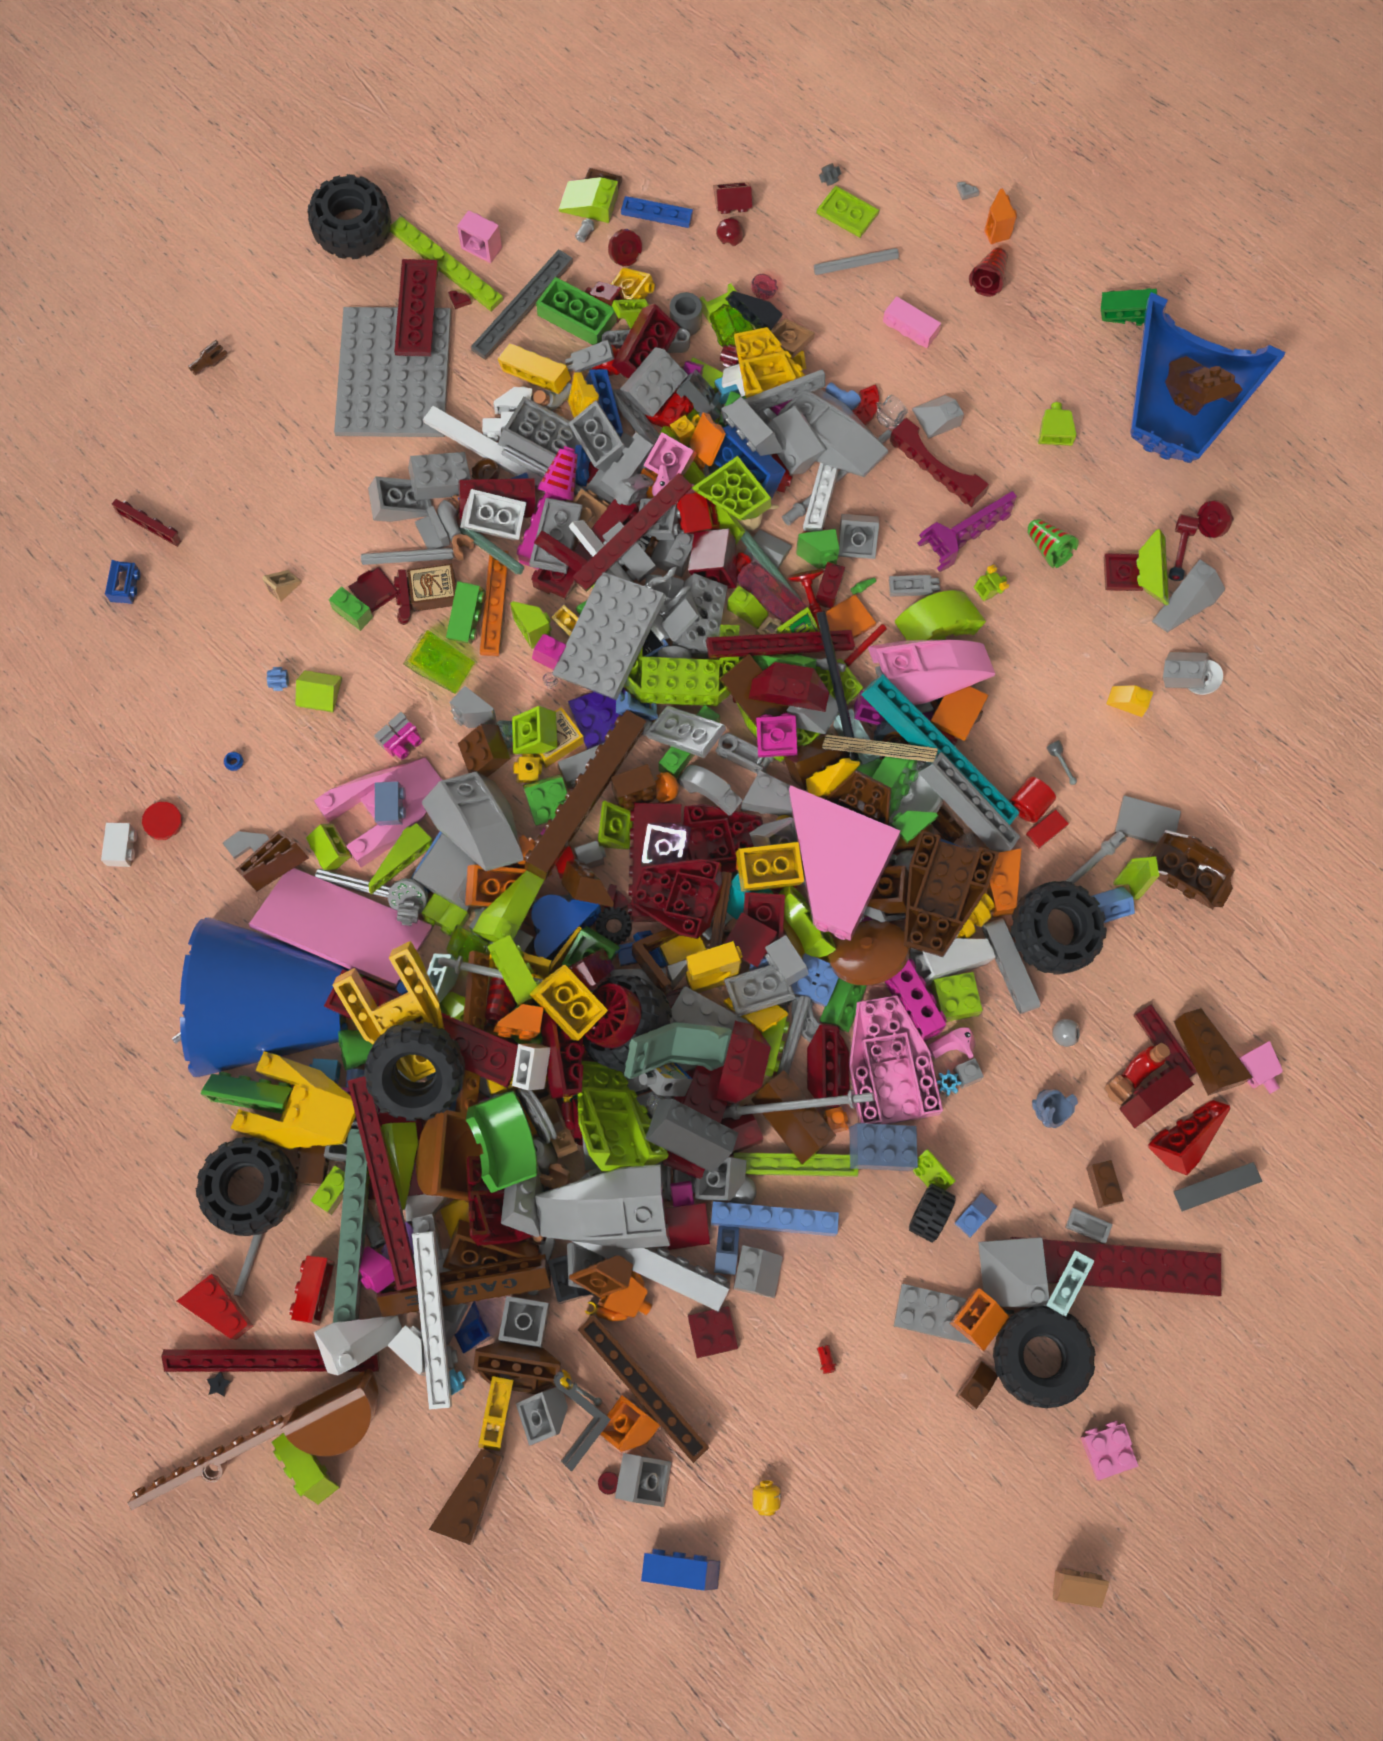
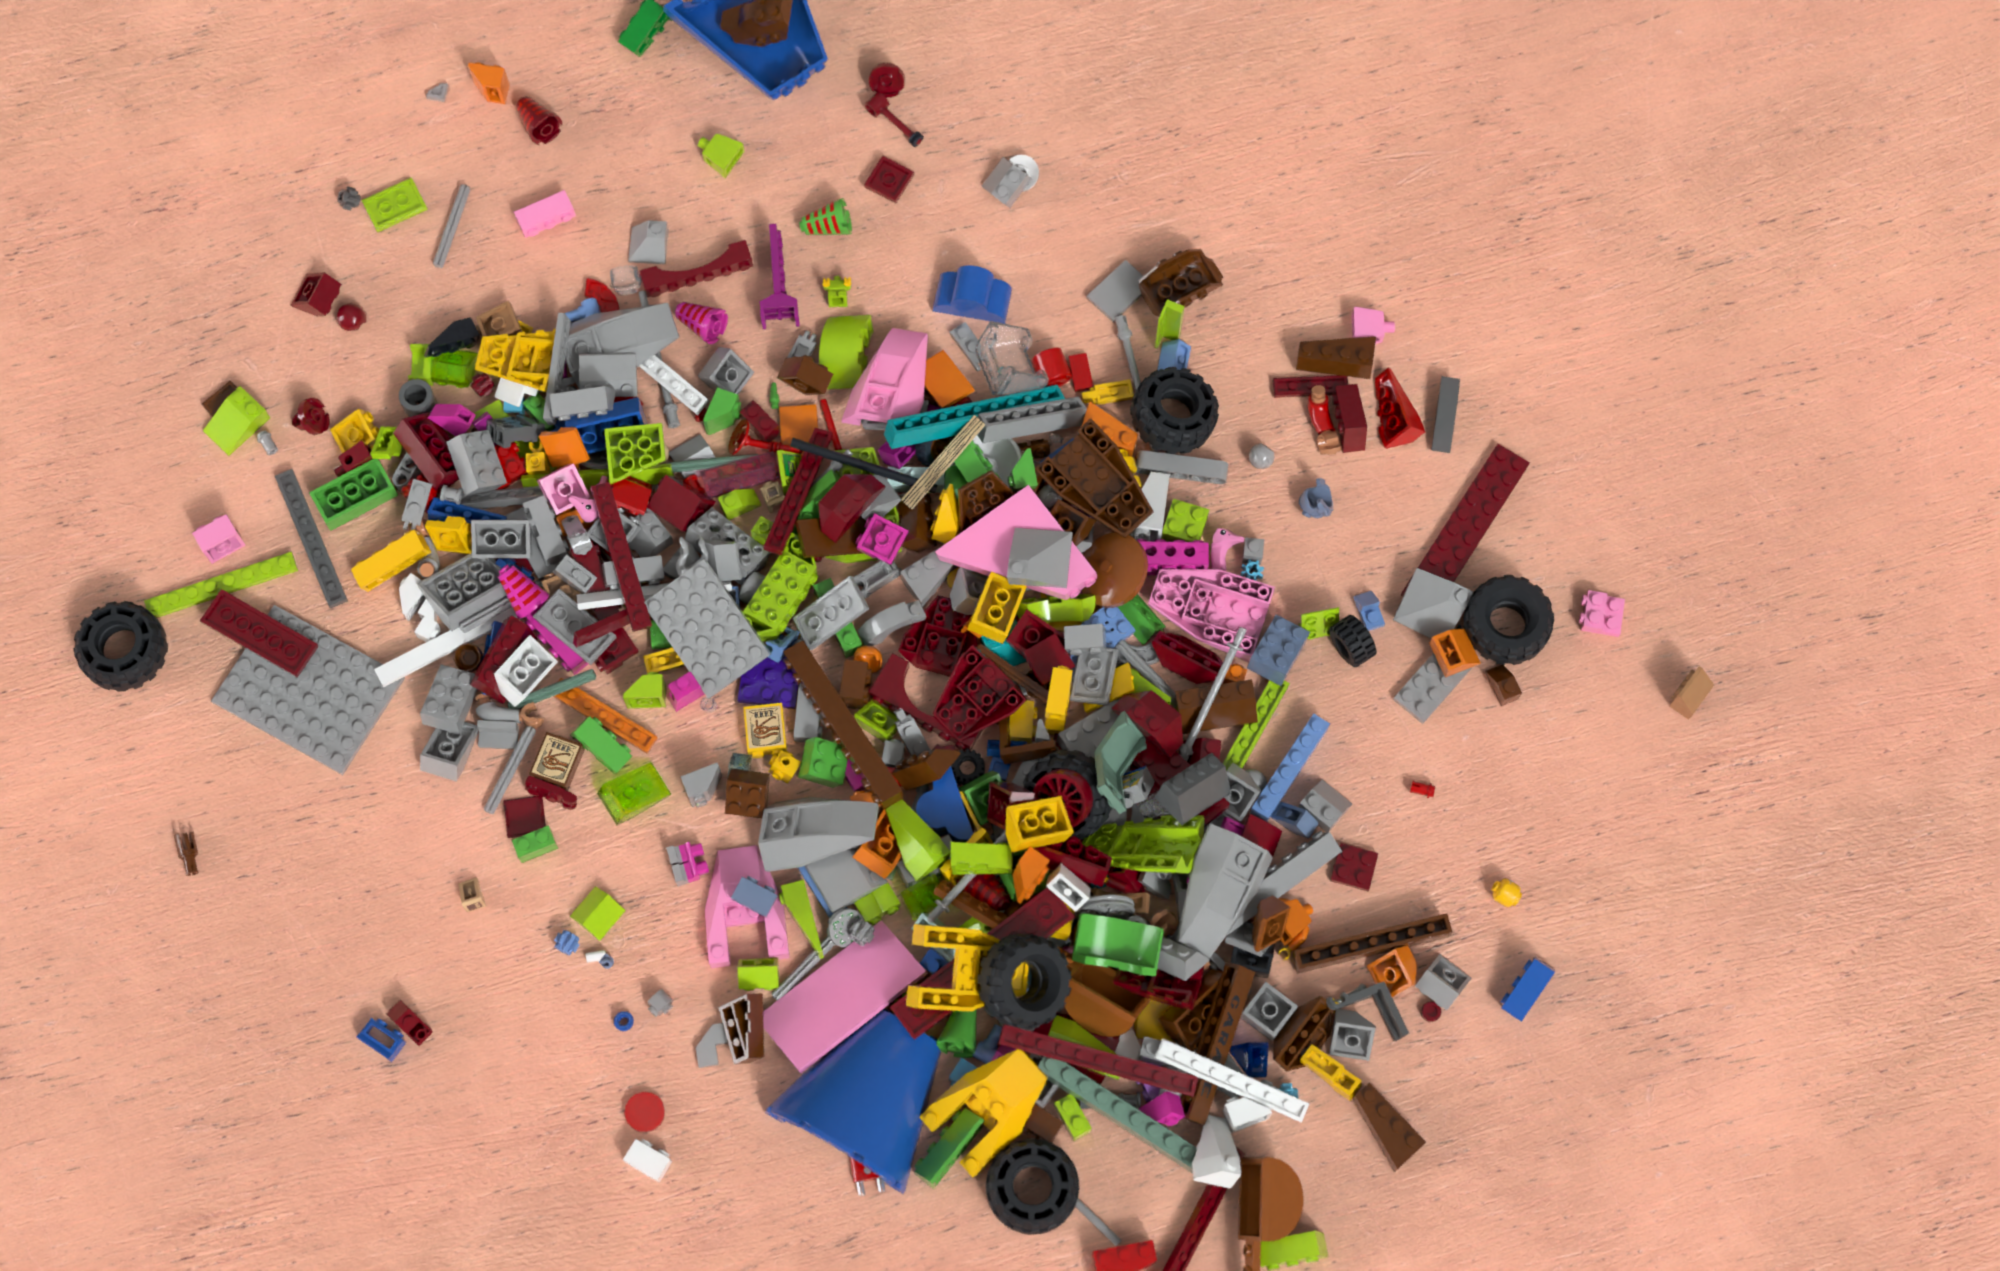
camera: 60 degrees left, 0 degrees up
(141, 518) = (337, 985): dark red plate -> none
(147, 594) = (409, 1022): none -> dark red slope
(262, 781) = (660, 1003): none -> light grey plate
(281, 713) = (600, 956): none -> arm
(312, 1290) = (1149, 1174): red slope -> none
(458, 299) = (268, 592): dark red tile -> none
(534, 731) = (756, 740): lime slope -> none
(599, 507) = (574, 575): none -> light grey panel
(615, 379) = (451, 494): none -> light grey bush
(615, 860) = (910, 733): none -> light grey hinge
(656, 212) = (289, 369): blue plate -> none
(666, 843) = (923, 683): clear purple slope -> none
(683, 344) = (452, 417): none -> dark pink slope
(764, 286) = (429, 318): clear pink hair -> none
(834, 876) = (1039, 558): none -> light grey slope
(893, 596) = (805, 375): none -> reddish brown brick
(894, 492) = (703, 320): none -> dark pink cone
(1012, 722) = (967, 343): none -> light grey hinge
(1015, 757) = (1005, 360): none -> clear windscreen
(1042, 862) = (1109, 393): none -> yellow hinge
(1056, 749) = (1017, 322): hinge -> none
(1061, 698) = (973, 294): none -> blue brick
(1070, 1283) = (1464, 565): light aqua slope -> none
(1088, 1226) = (1423, 529): light grey tile -> none
(1104, 1184) = (1398, 497): reddish brown brick -> none
(1130, 699) = (1006, 241): yellow slope -> none
(1153, 567) = (904, 154): lime wedge -> none
(1195, 593) = (943, 140): light grey wedge -> none

